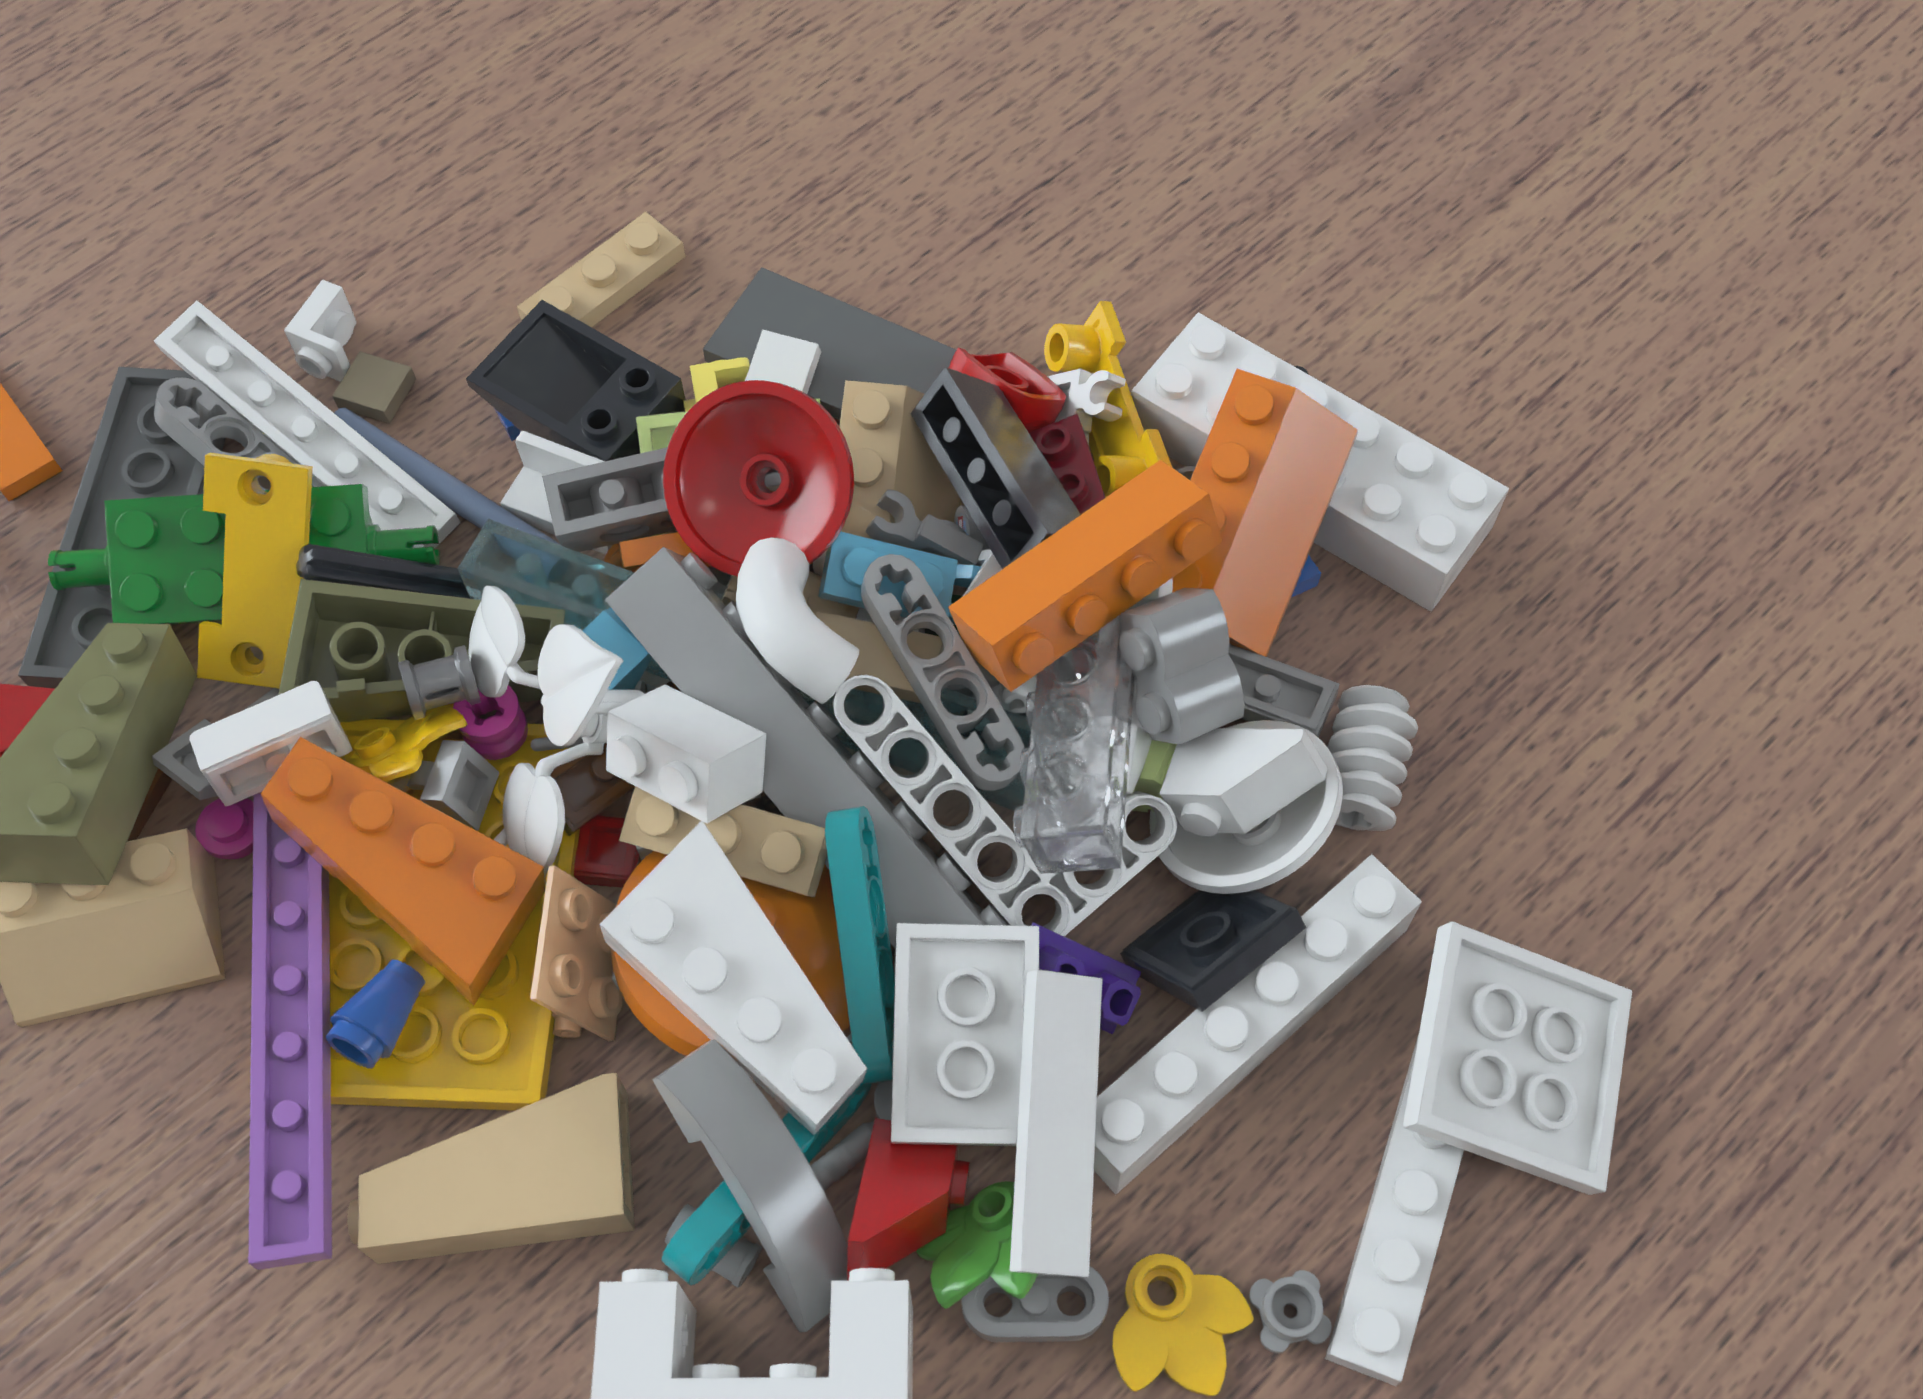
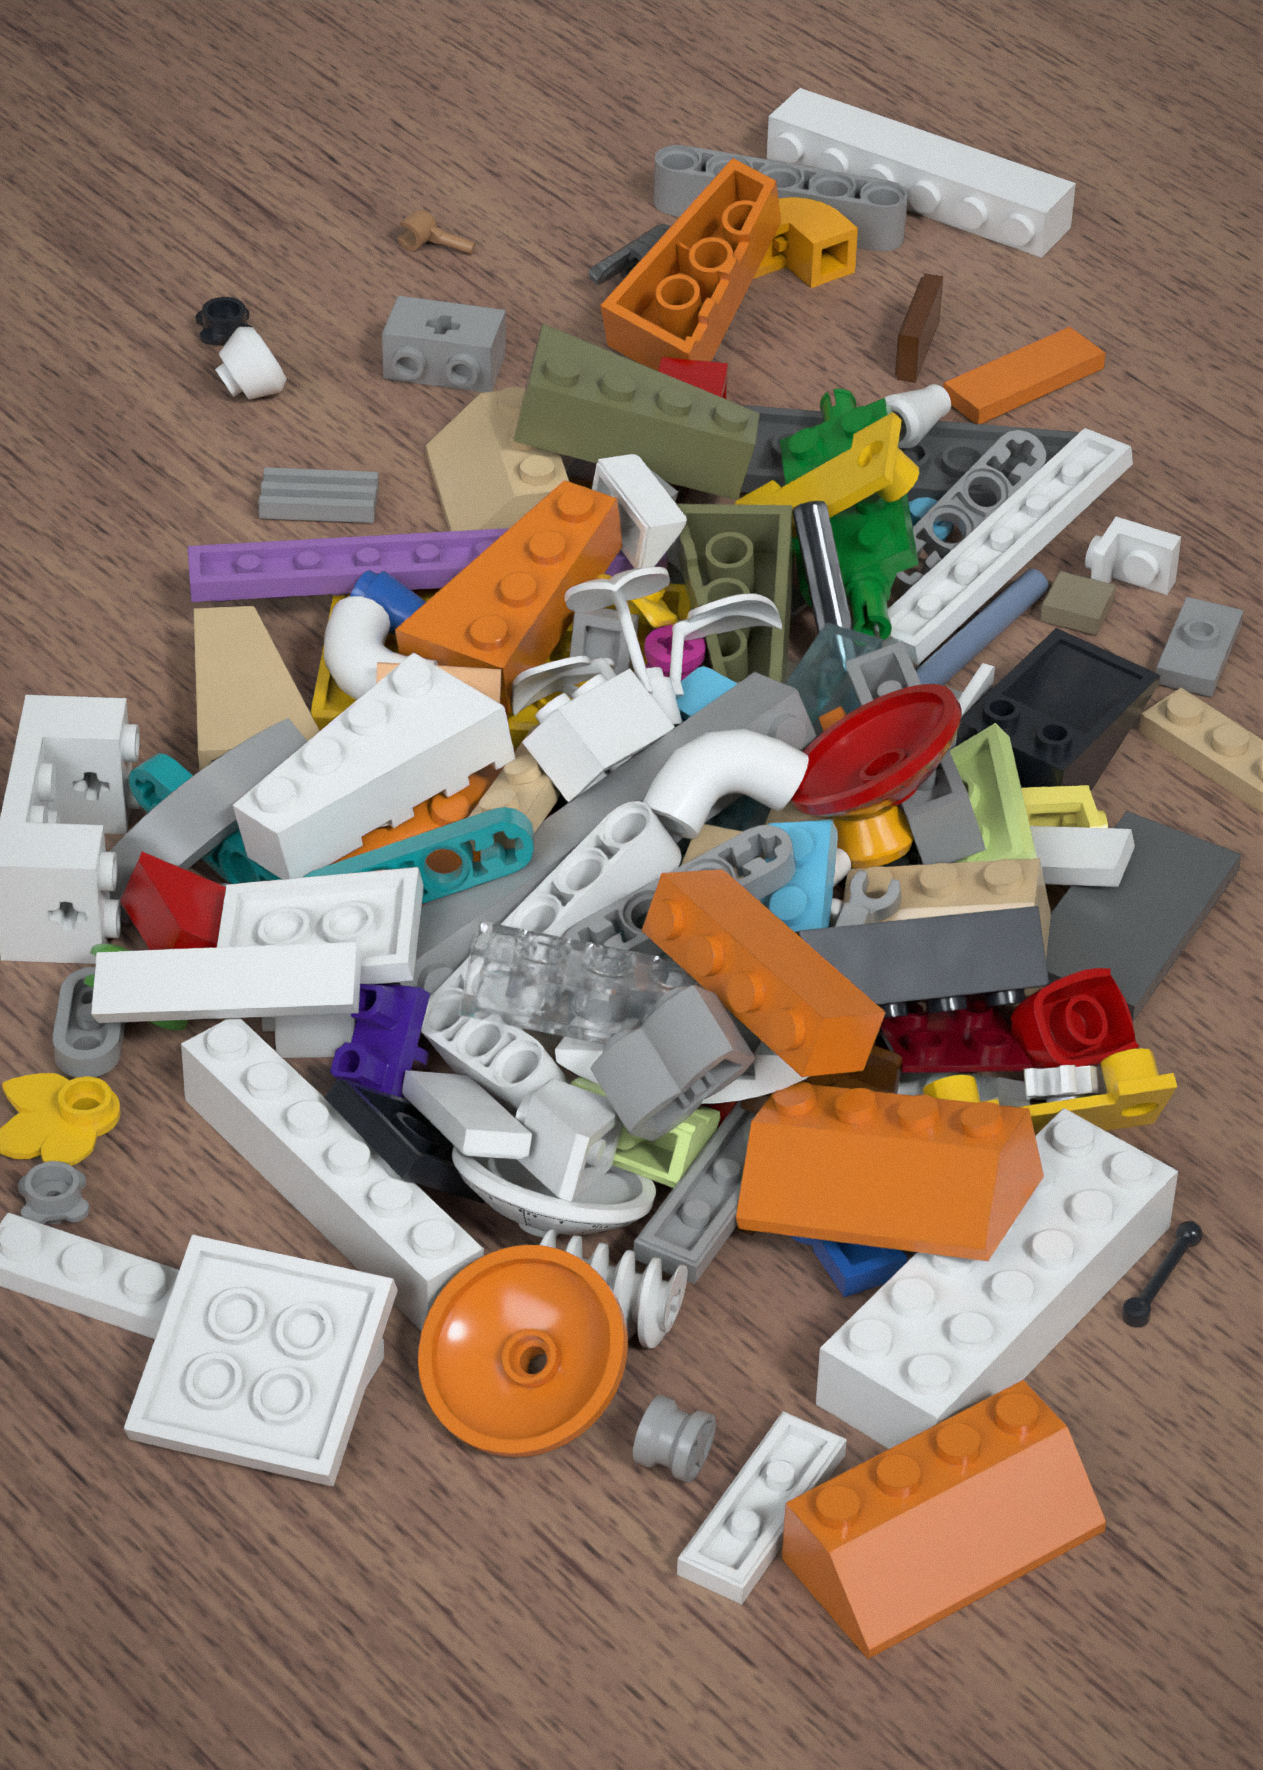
camera: 90 degrees right, 20 degrees down
(72, 1135) = (318, 495): none -> light grey tile
(81, 499) = (918, 412): none -> white cone
(439, 682) = (685, 588): flat silver bush -> none
(448, 295) = (1199, 646): none -> light grey plate
(478, 1040) = (356, 643): none -> white cylinder
(1195, 880) = (467, 1115): none -> white tile
(1495, 815) = (490, 1329): none -> orange dish
(1523, 705) = (674, 1438): none -> light grey wheel
(1564, 646) = (748, 1520): none -> white tile
(1569, 515) = (942, 1519): none -> orange slope

